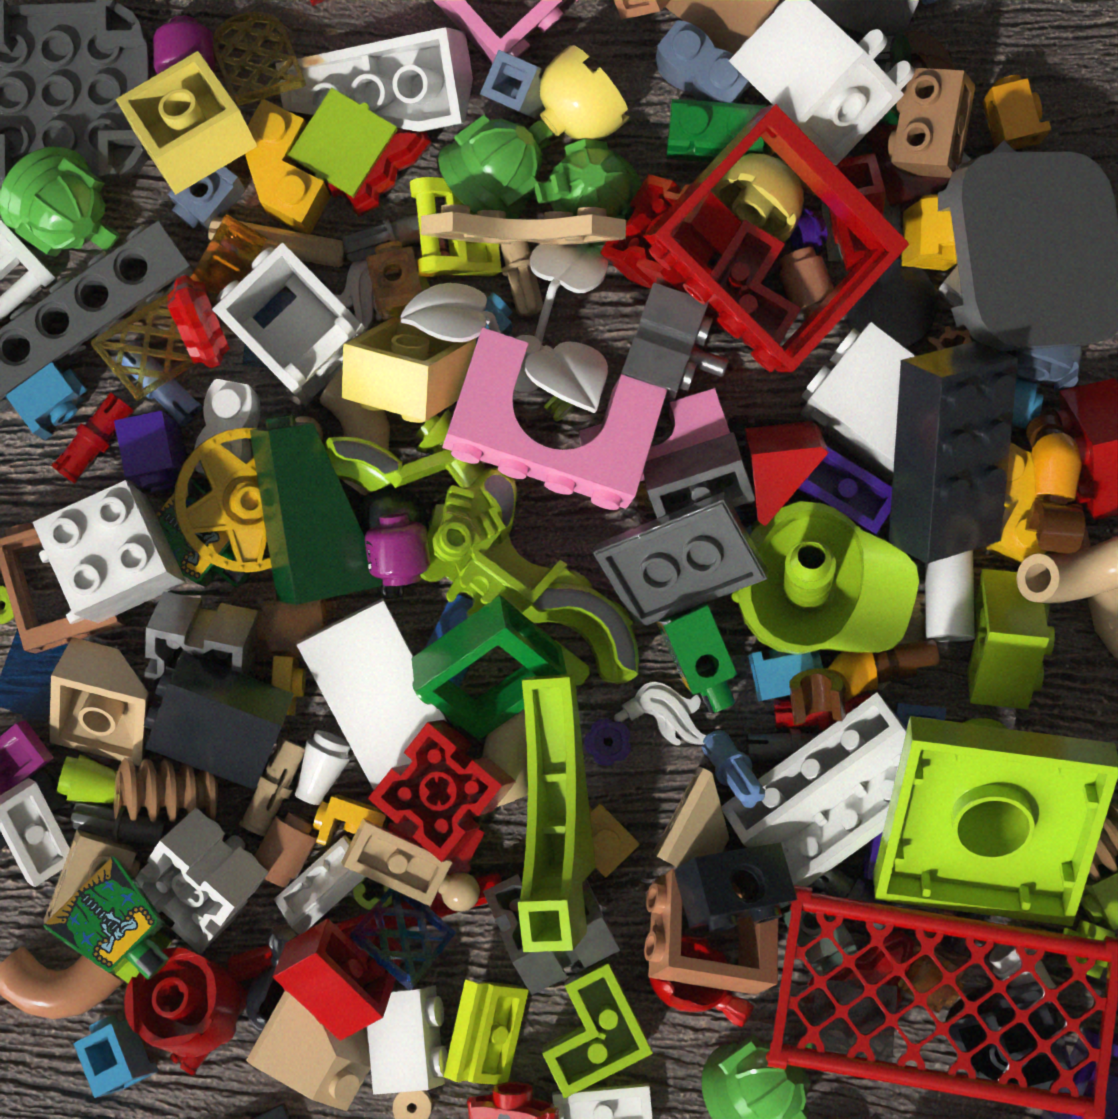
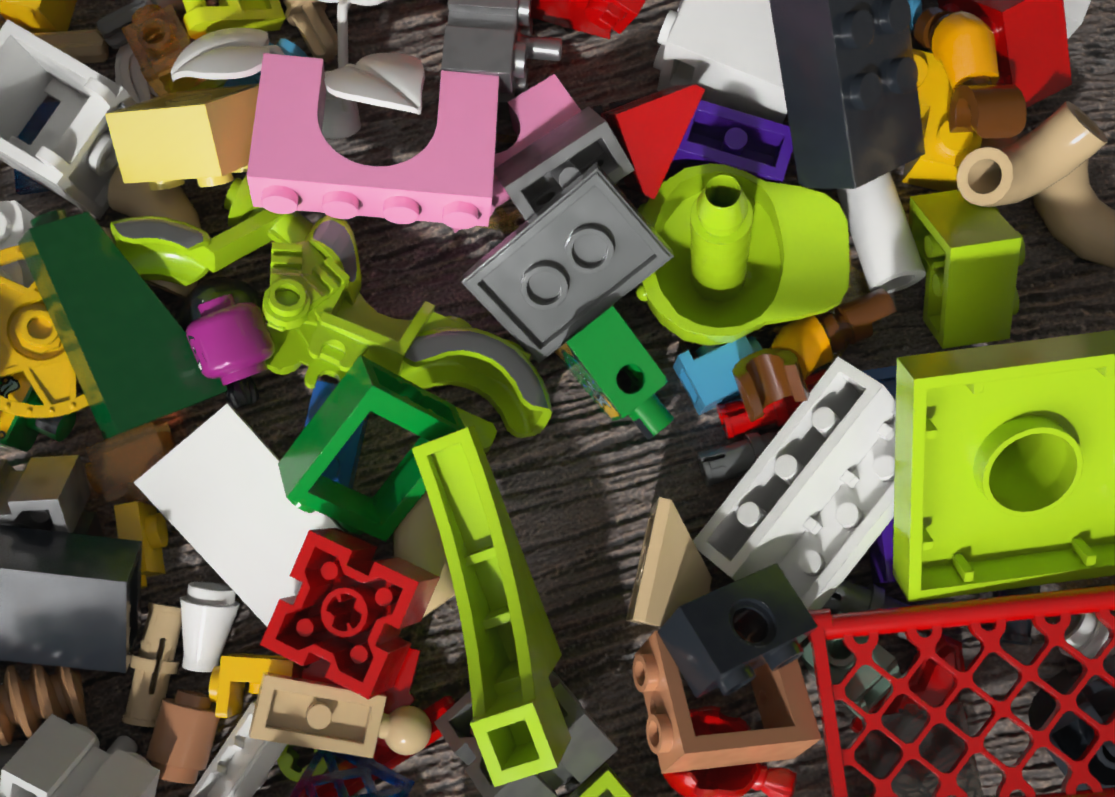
camera: 20 degrees left, 5 degrees down
(559, 407) = (391, 139): lime piece -> none
(610, 840) = (571, 619): yellow bracket -> none
(617, 732) = (523, 507): dark purple plate -> none
(668, 709) = (600, 451): white piece -> none
(733, 768) = (694, 494): medium blue axle -> none
(925, 974) = (996, 679): clear orange brick -> none

